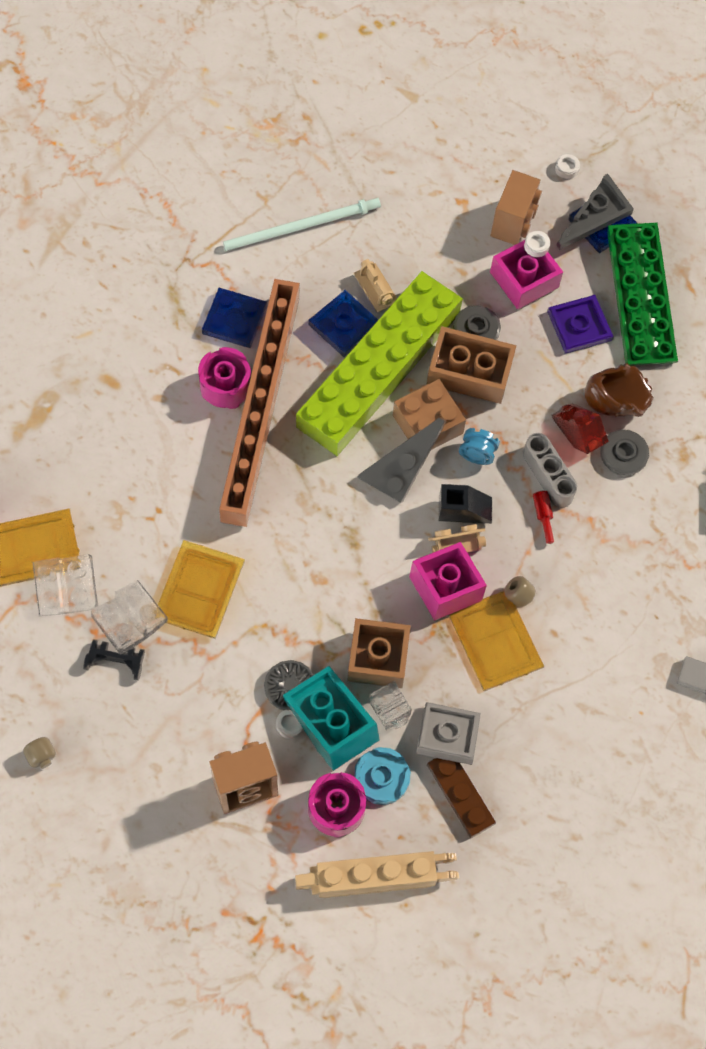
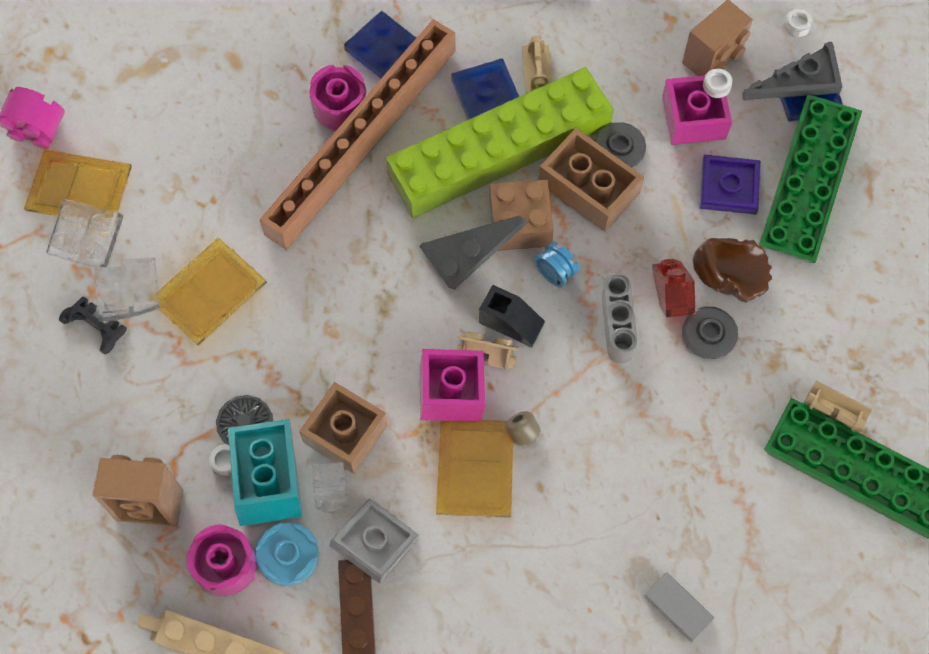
camera: 30 degrees right, 0 degrees up
(544, 513) = (592, 360): red axle -> none

